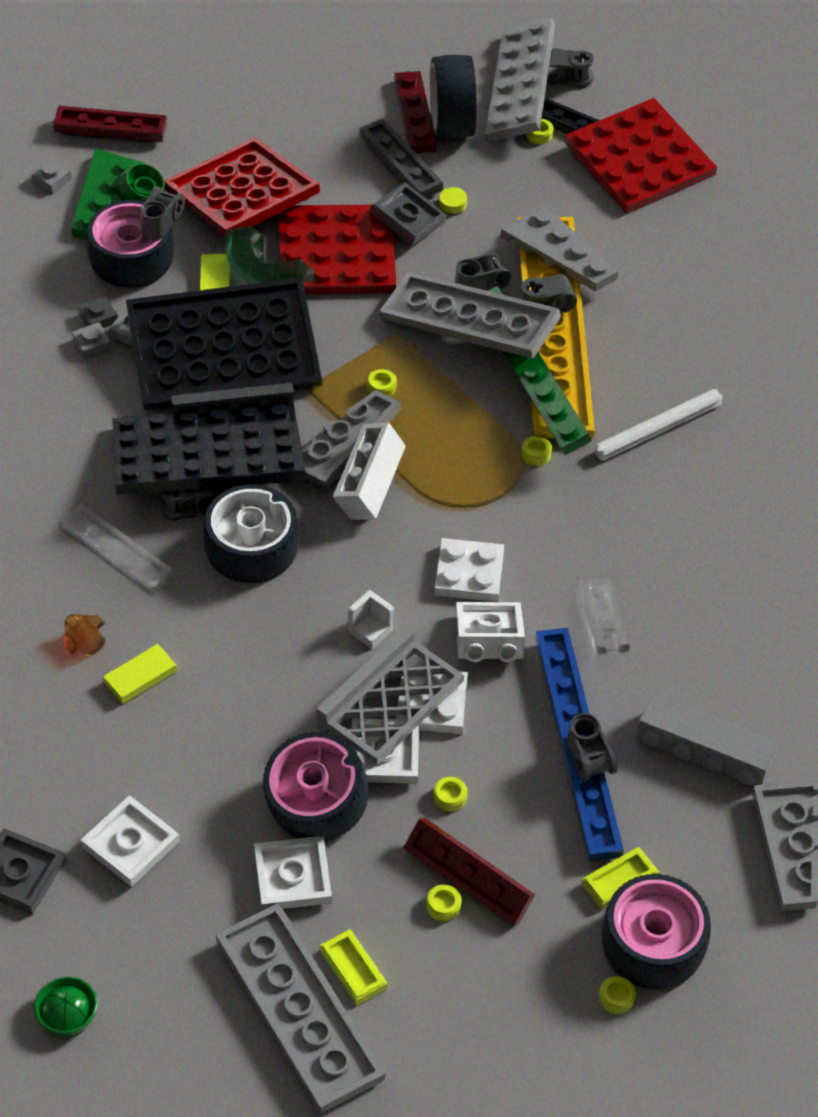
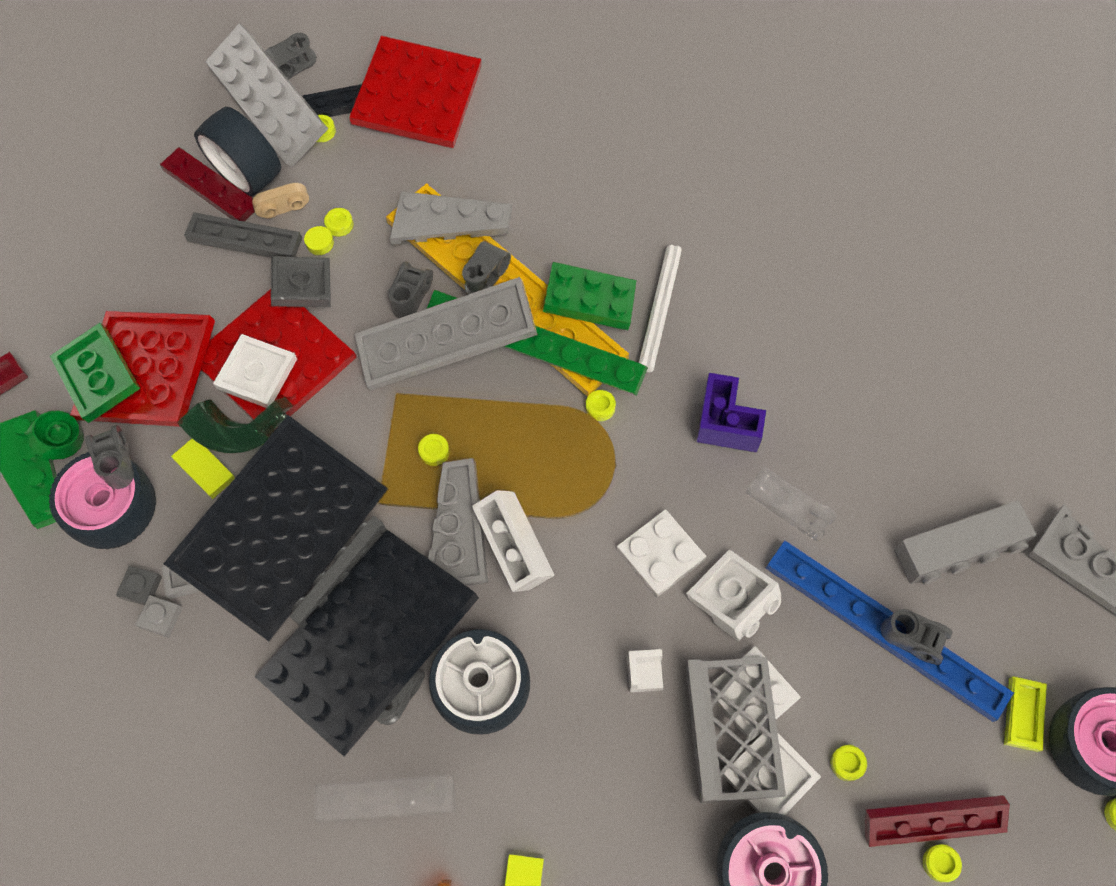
camera: 40 degrees left, 15 degrees up
(205, 164) = (94, 372): none -> green plate
(312, 239) = (255, 371): none -> white plate
(453, 154) = (280, 200): none -> tan plate
(481, 199) = (339, 222): none -> neon yellow tile
(610, 374) = (590, 296): none -> green plate
(616, 520) = (726, 423): none -> dark purple brick

